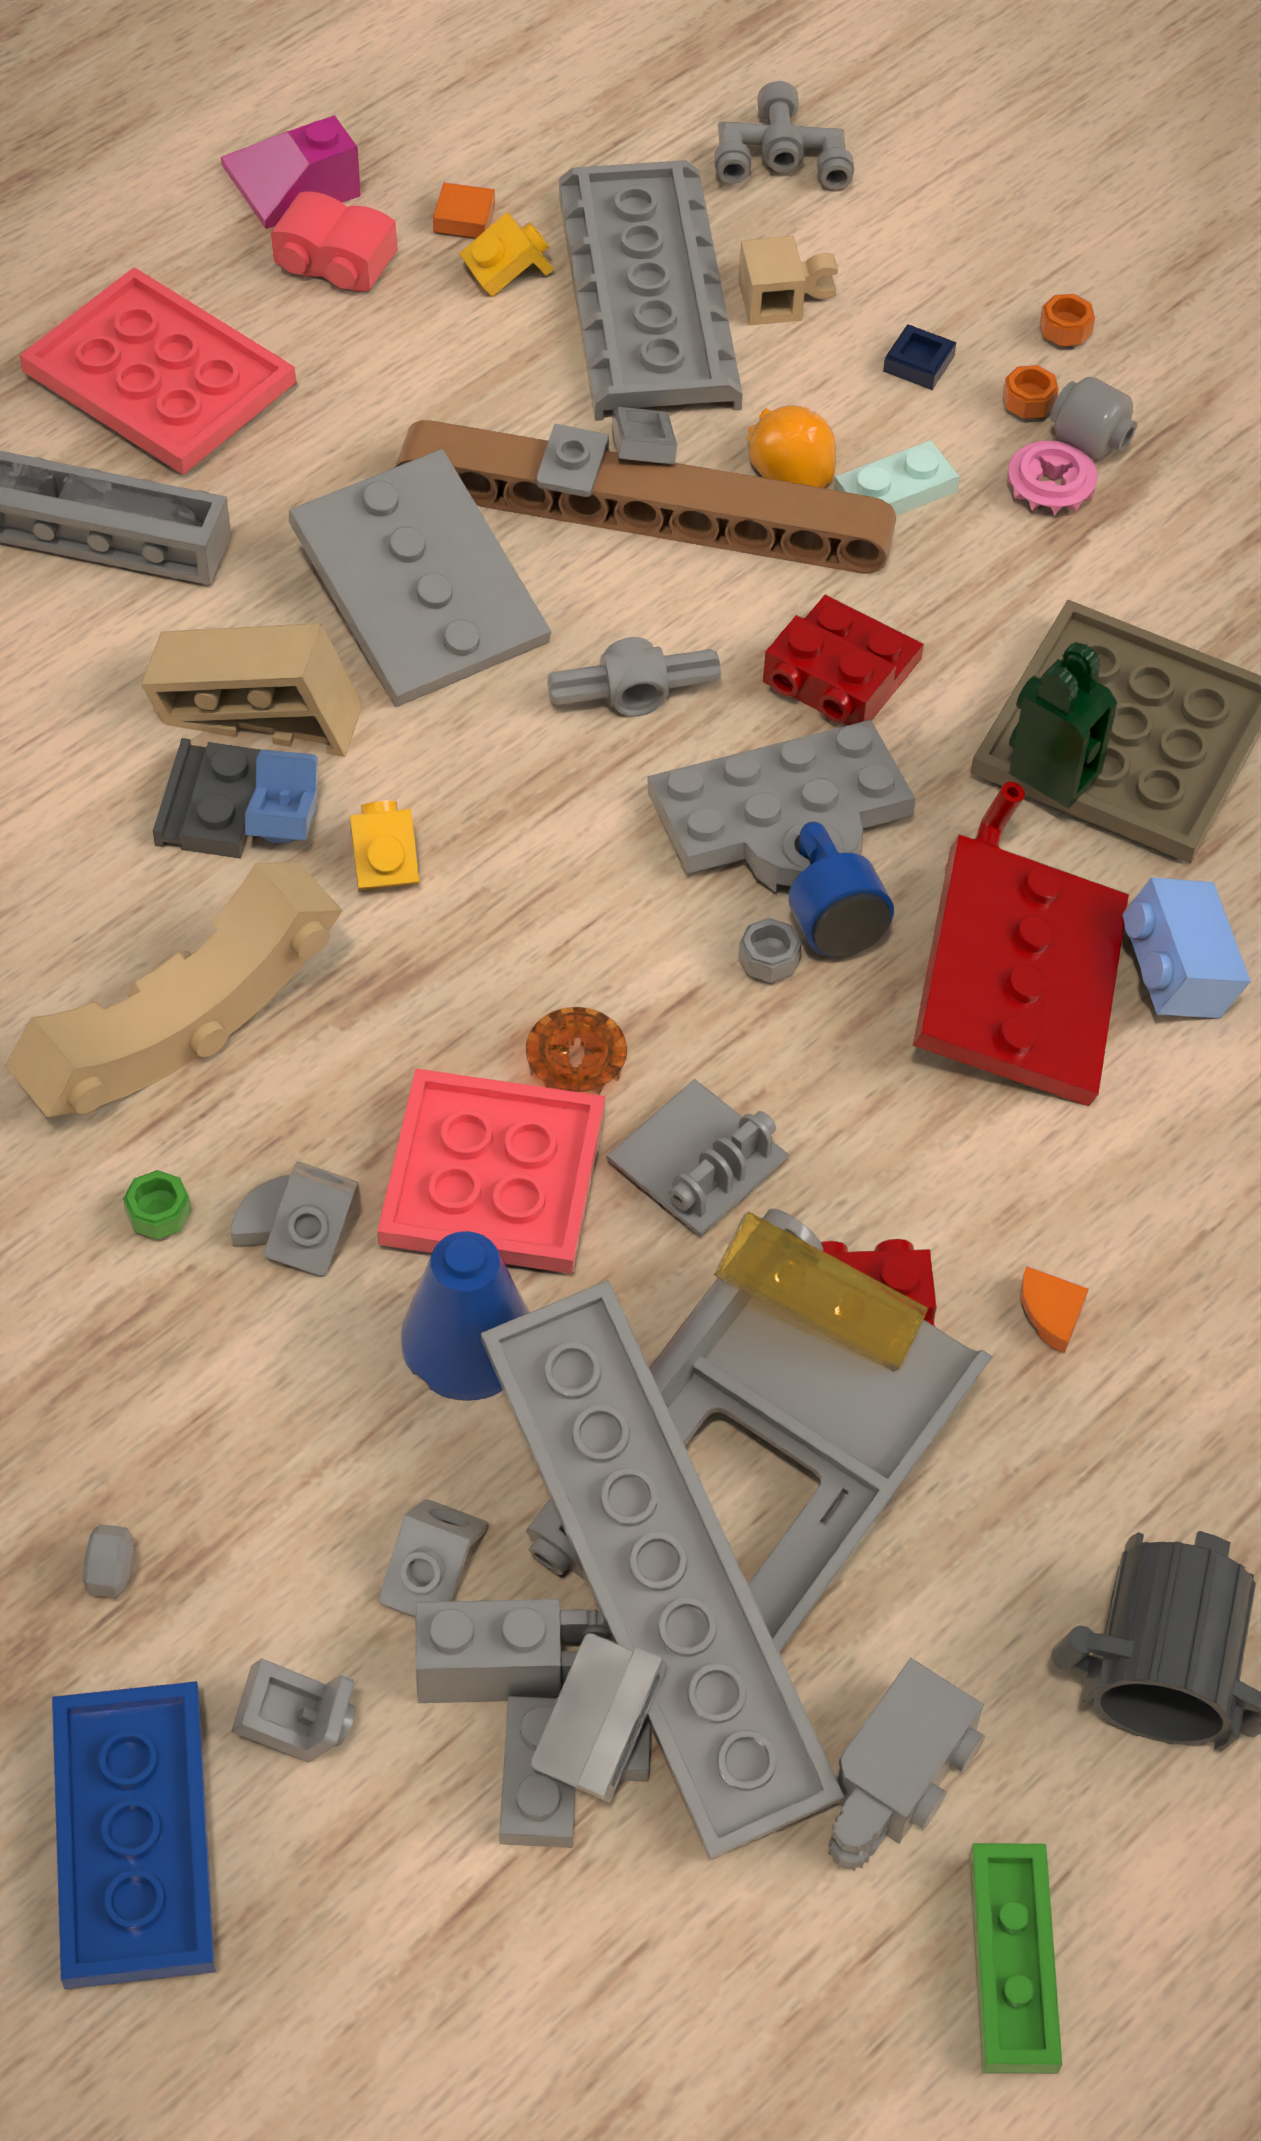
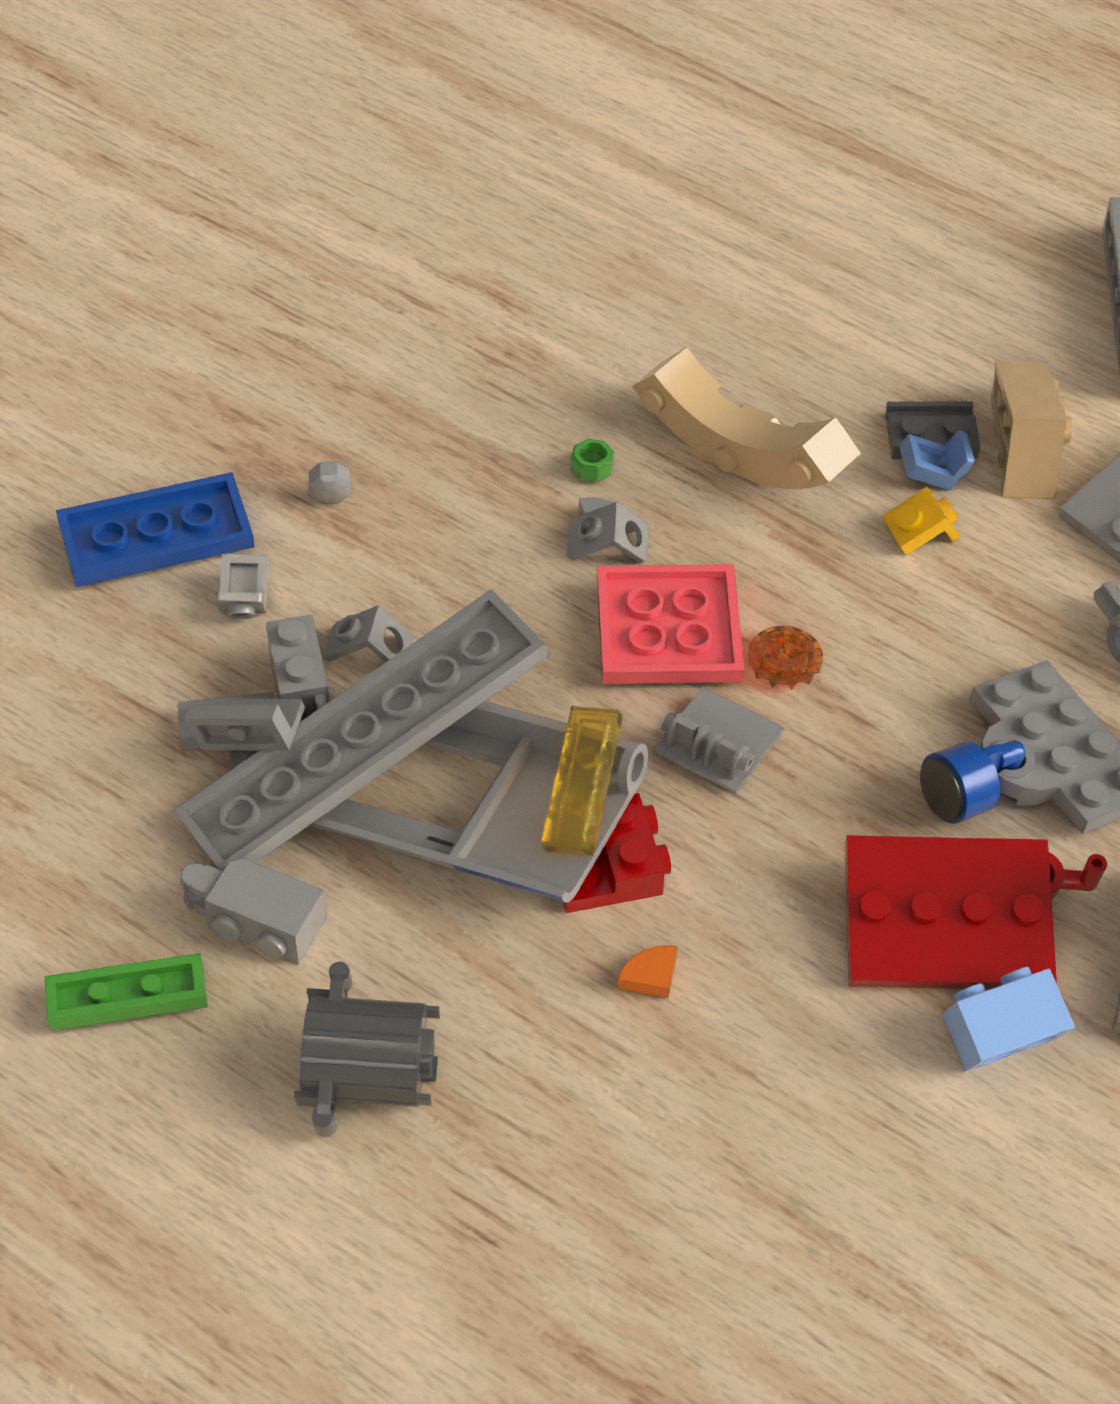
camera: 80 degrees right, 5 degrees down
(457, 1299) = (546, 604): blue cone -> none
(770, 950) = (909, 753): light grey tile -> none

